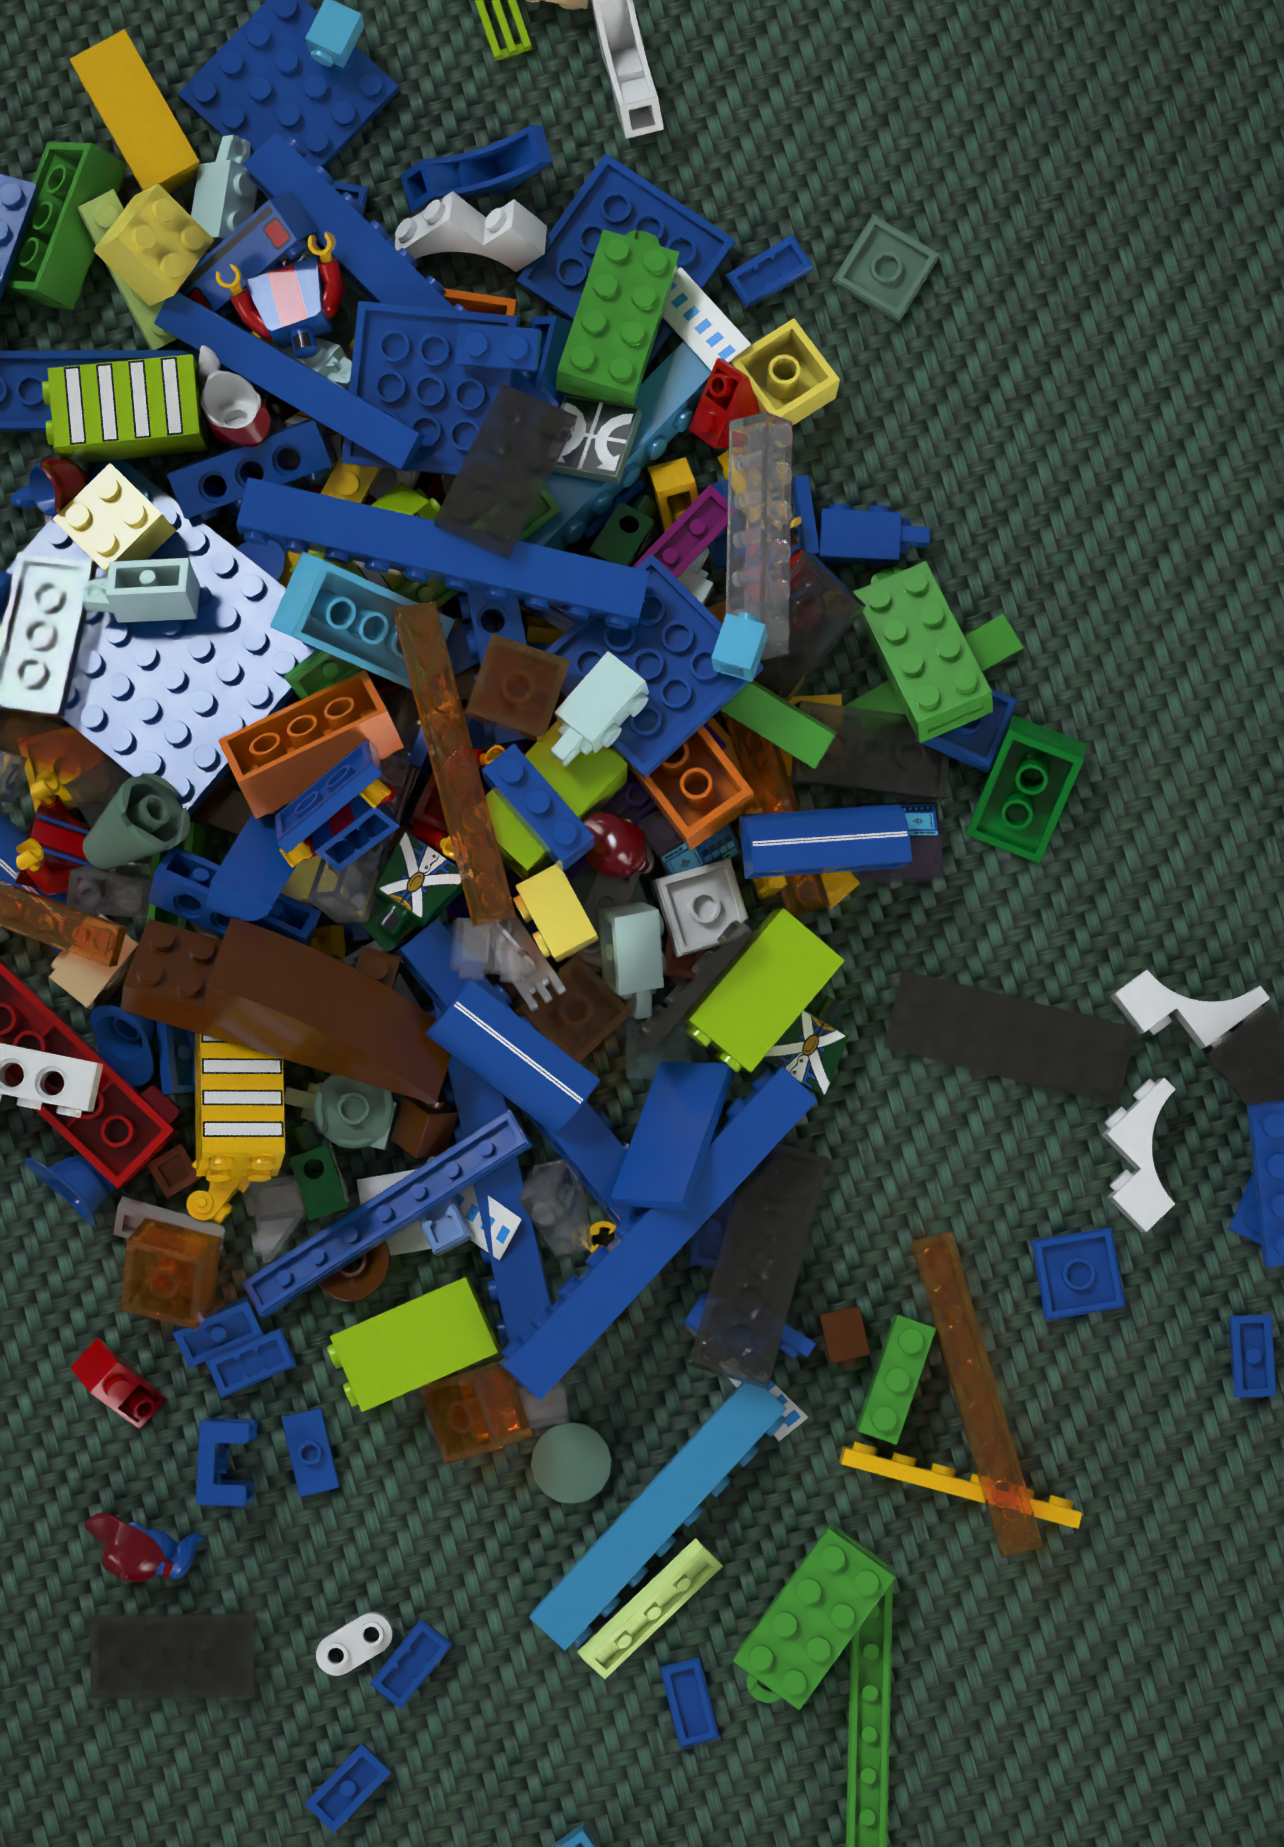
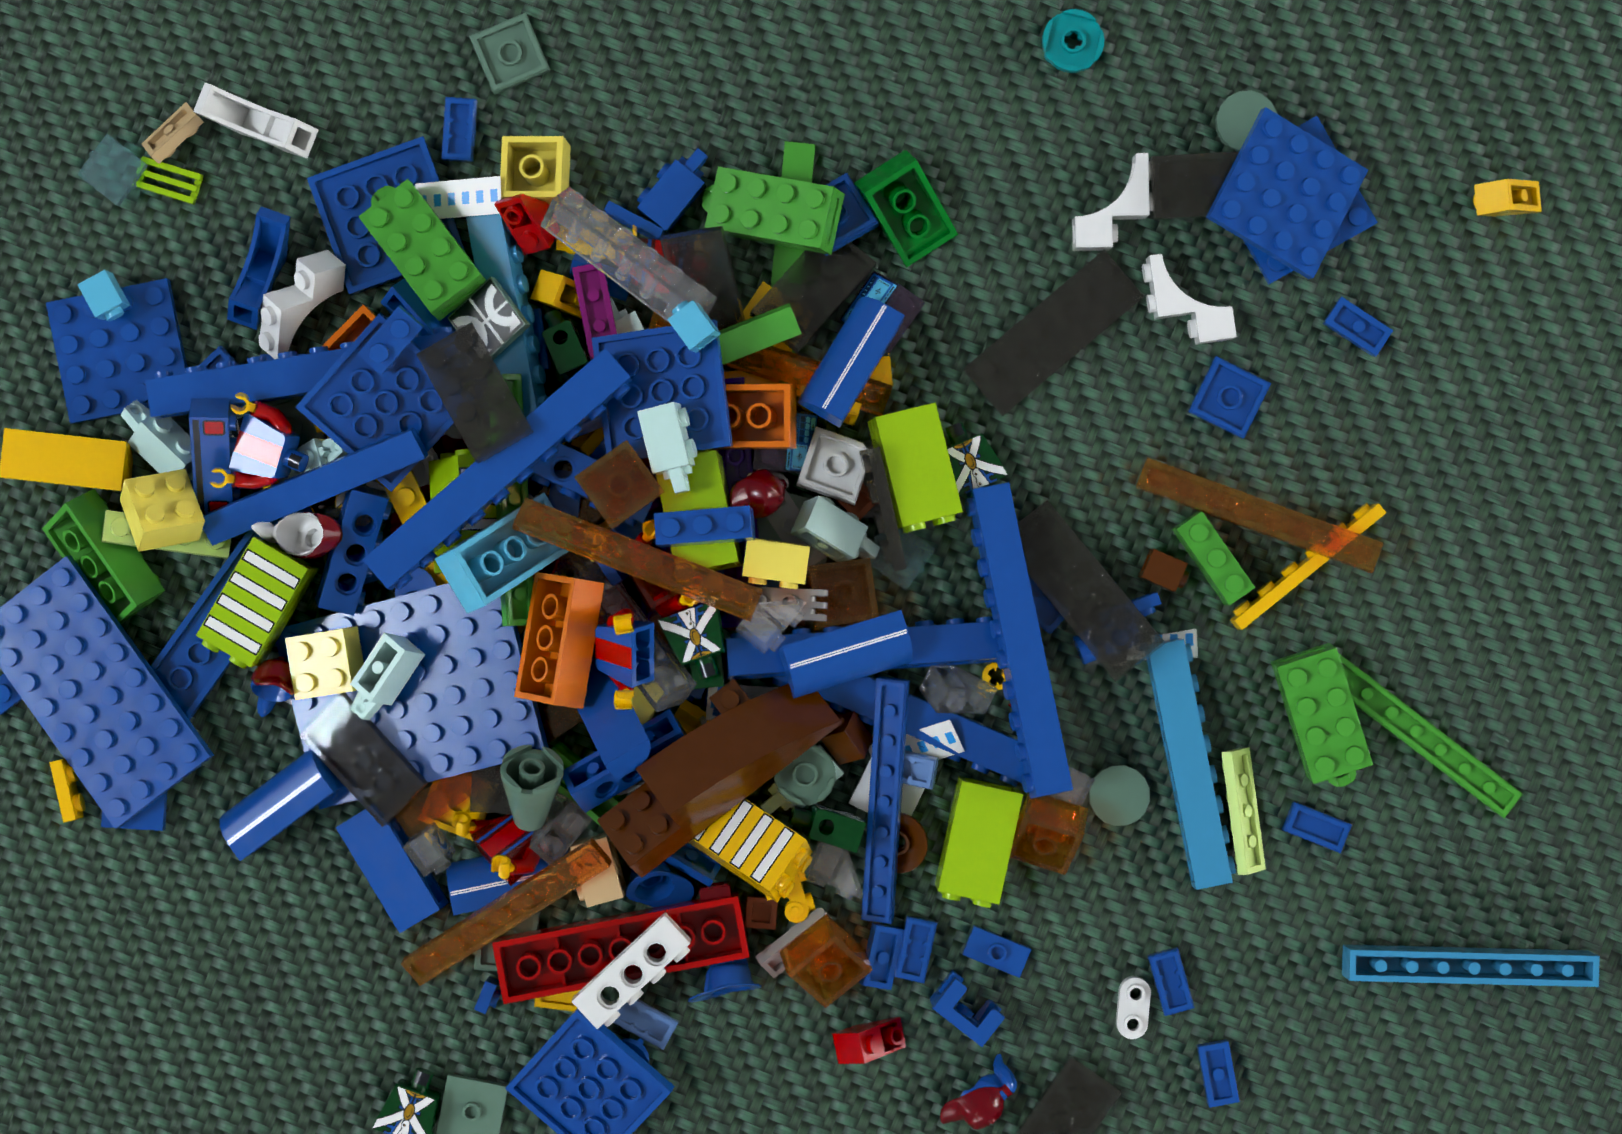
camera: 50 degrees left, 5 degrees up
(327, 795) = (603, 654): blue tile -> none
(673, 1135) = (966, 588): blue tile -> none

